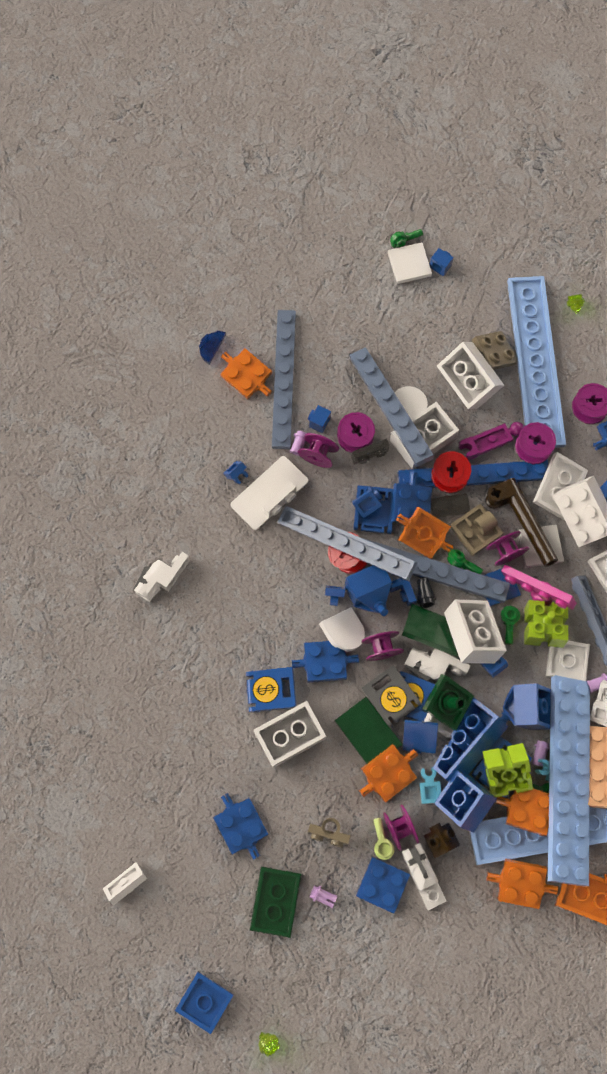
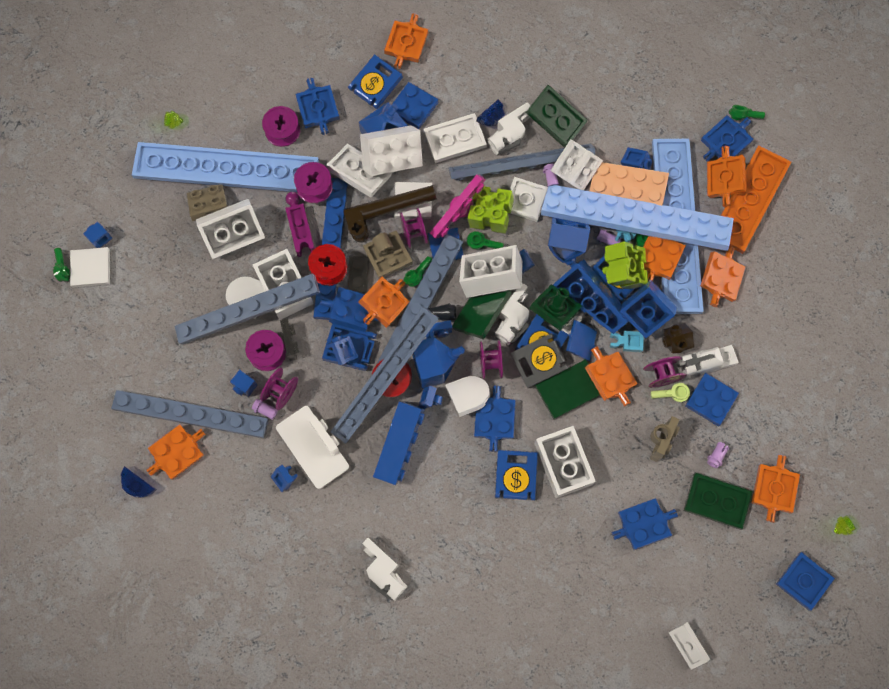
camera: 80 degrees left, 0 degrees up
(286, 570) = (399, 442): none -> blue wedge
(297, 963) = (775, 488): none -> orange plate

